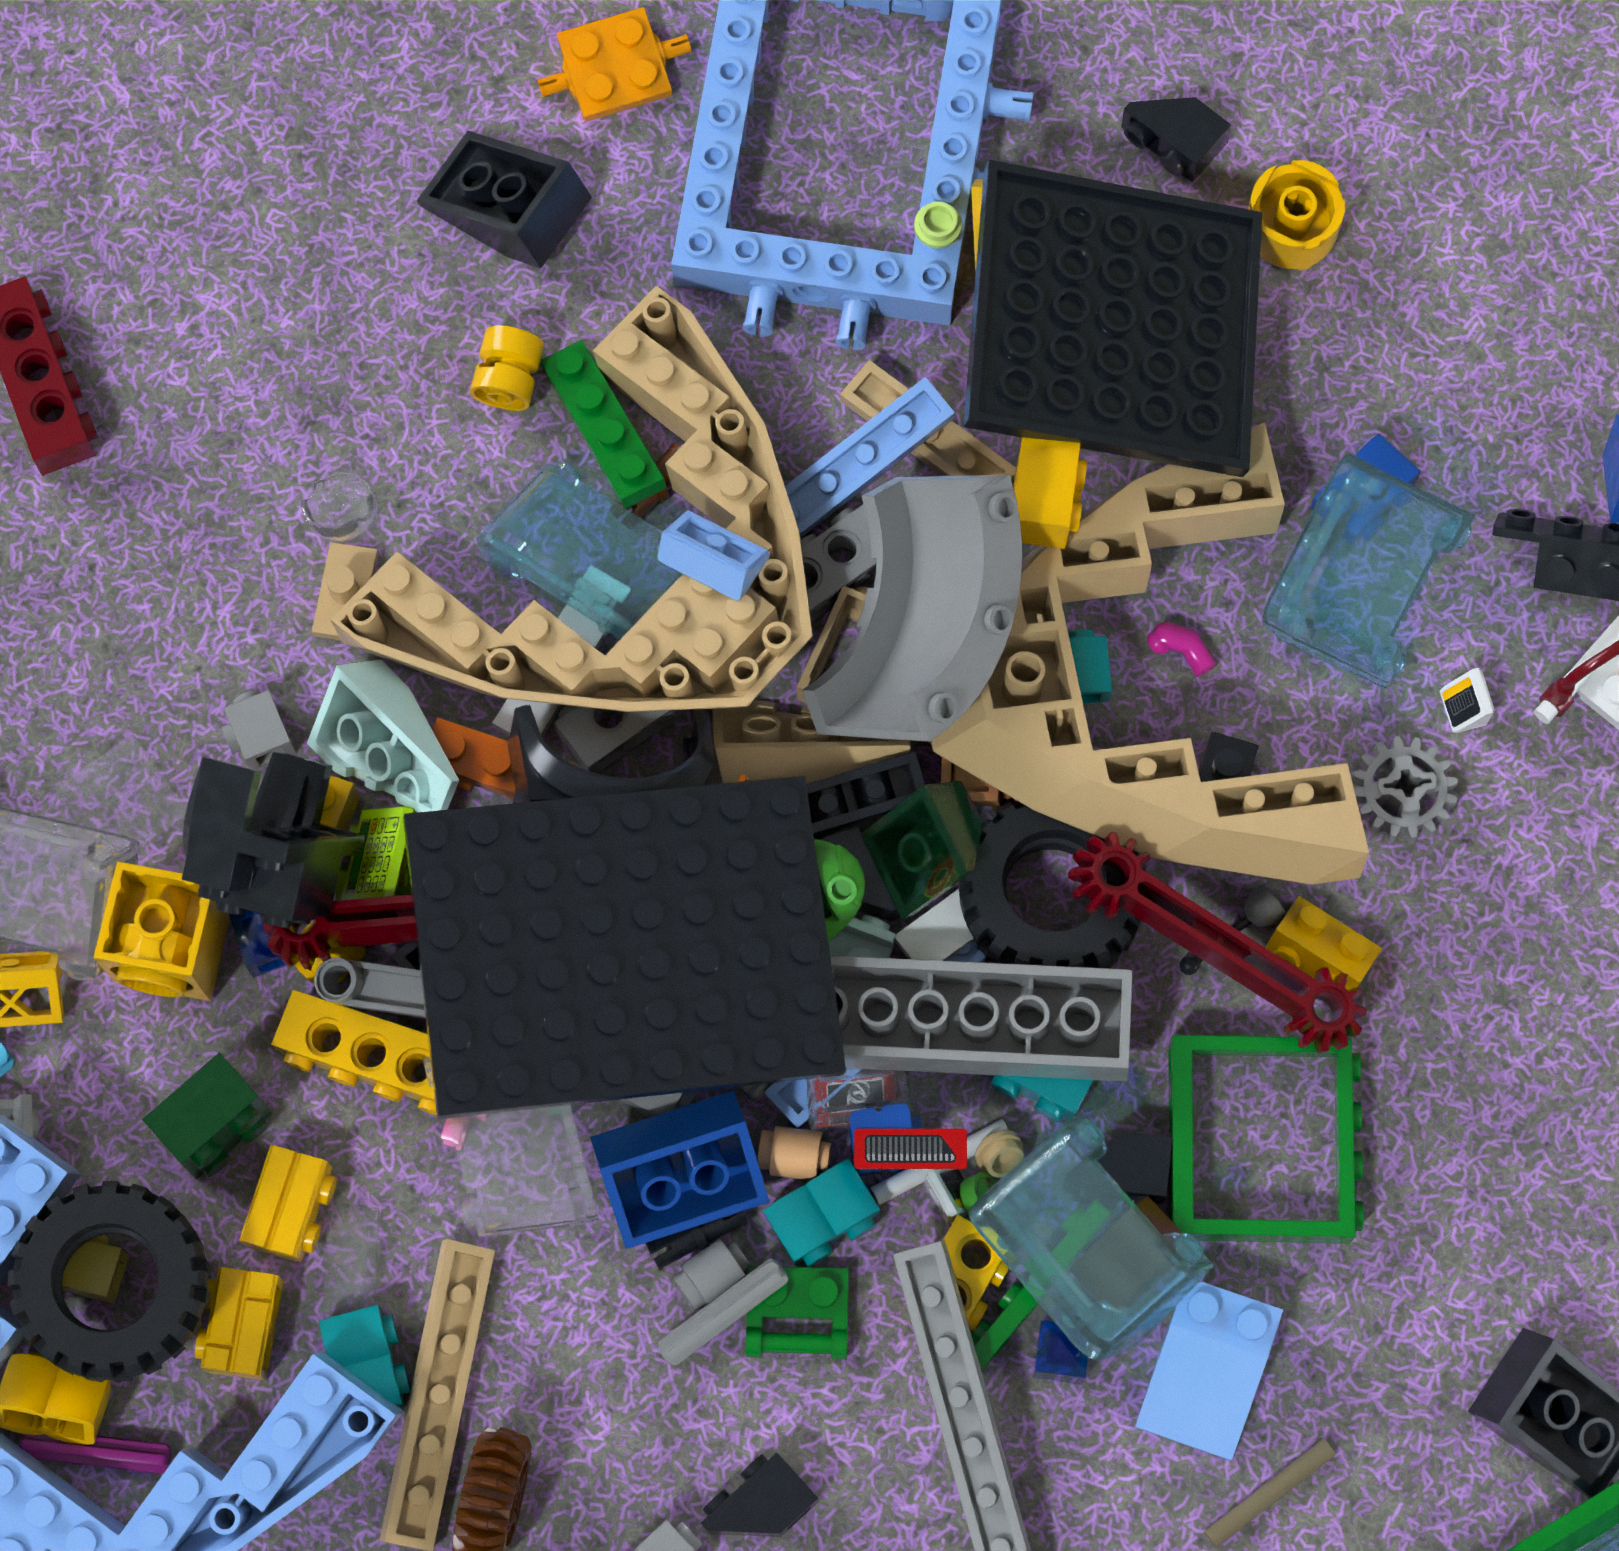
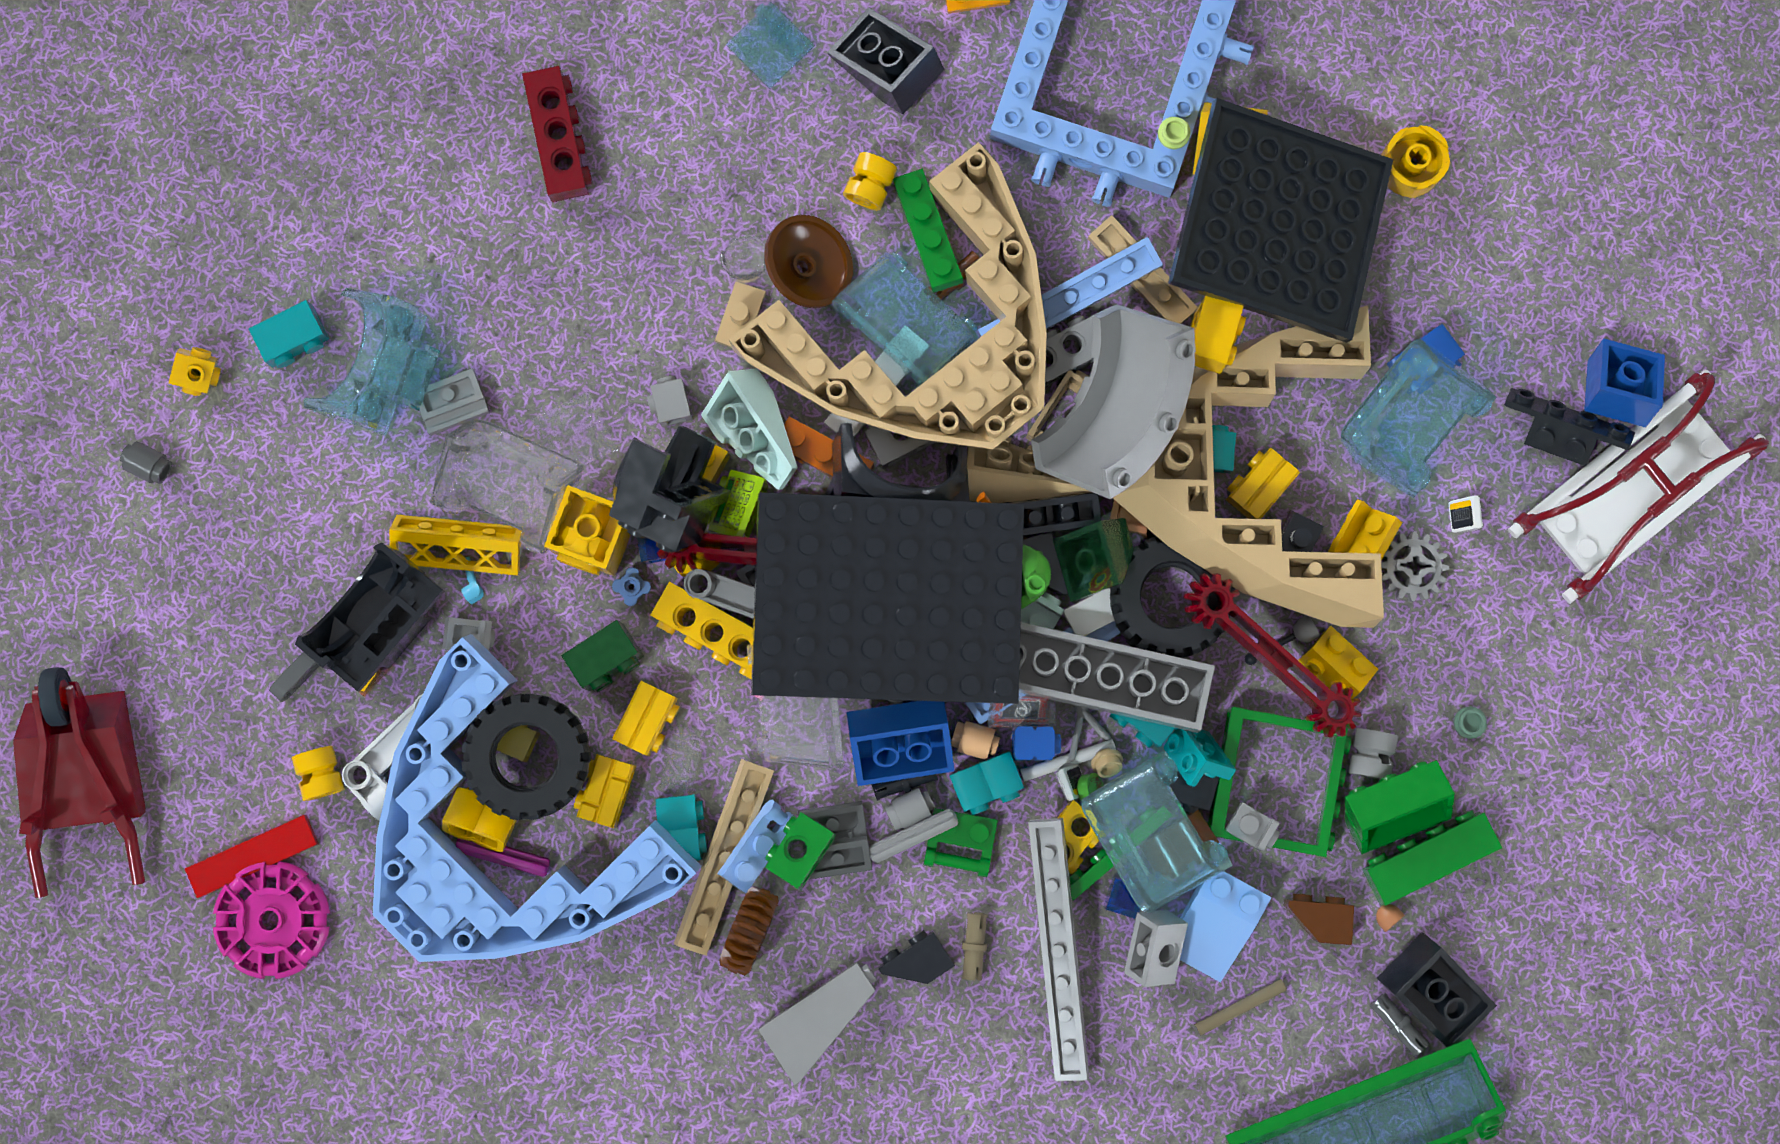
camera: 10 degrees right, 10 degrees up
(239, 1025) = (622, 586): none -> medium blue plate
(331, 203) = (770, 44): none -> clear light blue hinge
(441, 477) = (820, 254): none -> reddish brown dish
(486, 1369) = (749, 855): none -> light blue plate
(555, 1390) = (817, 840): none -> green brick
(604, 1342) = (850, 848): none -> dark grey slope
(711, 555) = (986, 341): light blue slope -> none
(844, 1467) = (974, 946): none -> dark tan pin
(910, 1148) = (1051, 757): sticker -> none
(952, 1086) = (1084, 713): none -> light grey plant
(1121, 1418) = (1155, 948): none -> light grey brick
(1132, 1112) = (1198, 755): none -> teal bracket
(1161, 703) = (1262, 485): none -> yellow brick
(1178, 131) = (1347, 88): black slope -> none
(1184, 640) = (1285, 441): dark pink arm -> none
(1236, 1208) = (1253, 827): none -> light grey bracket
(1327, 741) = (1365, 531): none -> yellow bracket
(1369, 1336) = (1323, 921): none -> reddish brown slope
(1398, 1073) = (1373, 753): none -> light grey wheel
(1450, 1141) = (1398, 806): none -> green piece
(1468, 1315) = (1388, 916): none -> nougat hinge
(1514, 1214) = (1432, 857): none -> green brick
(1516, 1477) = (1399, 1024): none -> dark grey pin
(1534, 1004) = (1470, 722): none -> sand green plate

